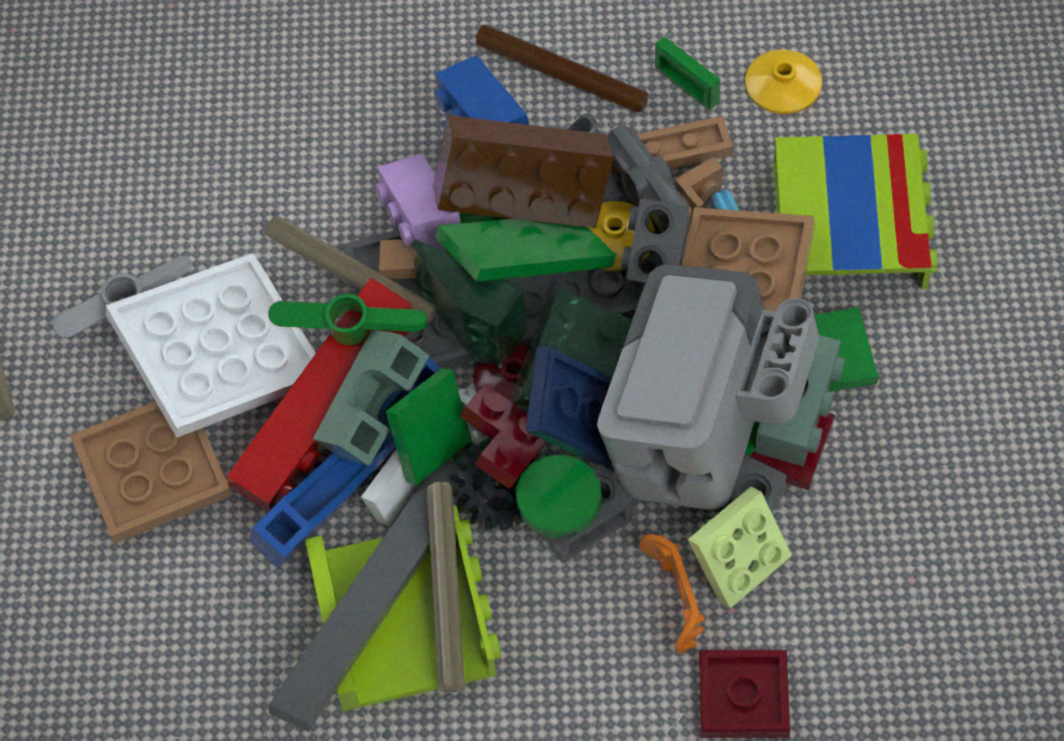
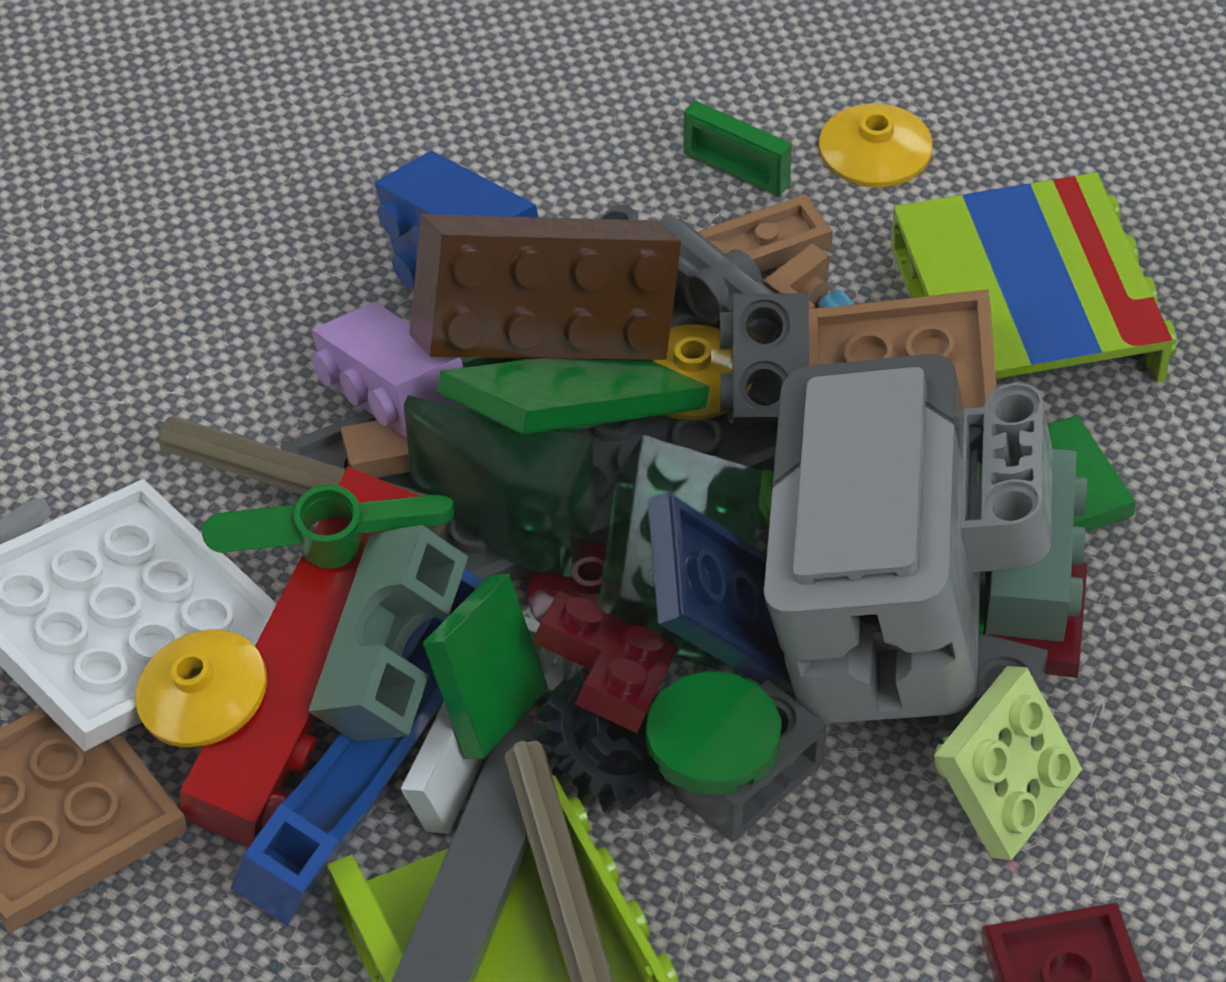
camera: 15 degrees left, 10 degrees down
(258, 422) = (210, 705): none -> yellow dish
(562, 68) = (554, 170): reddish brown axle -> none
(670, 560) = (905, 803): orange piece -> none

